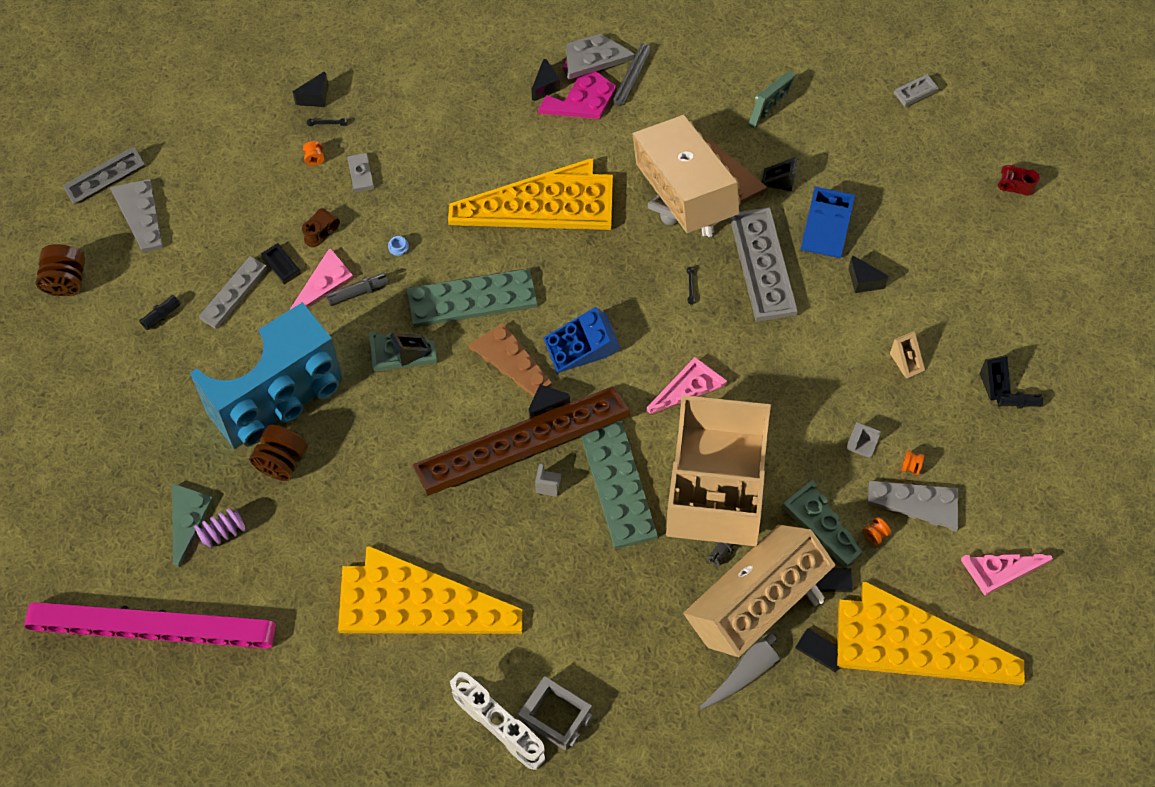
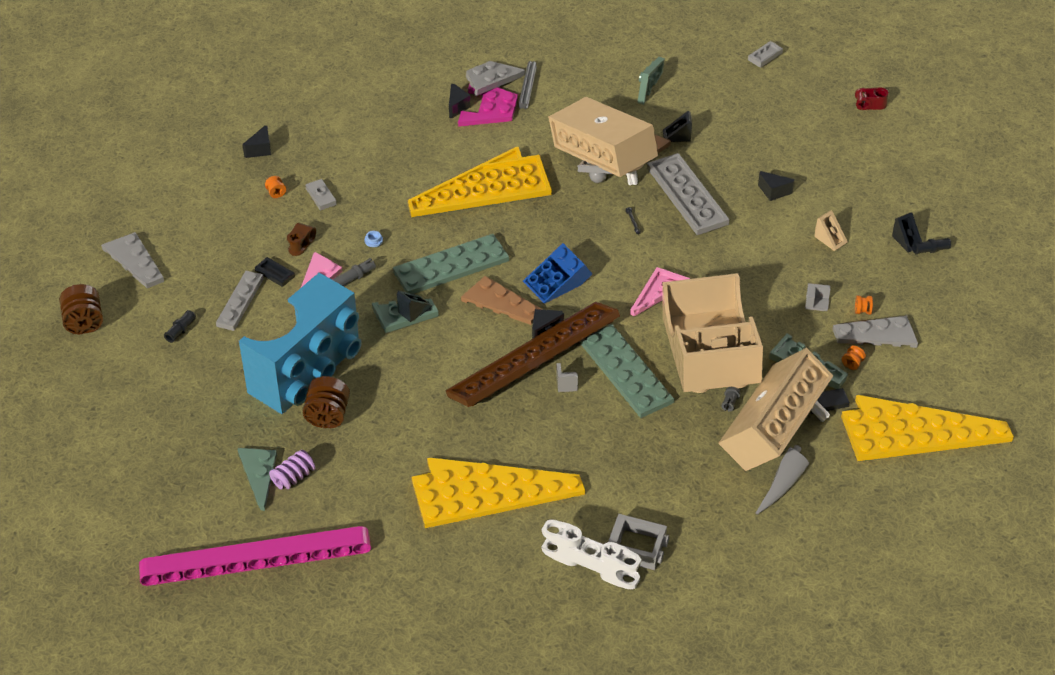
camera: 15 degrees left, 15 degrees down
(103, 175) = (92, 236): light grey plate -> none
(343, 122) = (292, 161): black hinge -> none
(818, 649) = (838, 451): black tile -> none
(827, 222) = (730, 153): blue slope -> none
(998, 571) = (962, 365): bright pink wing -> none

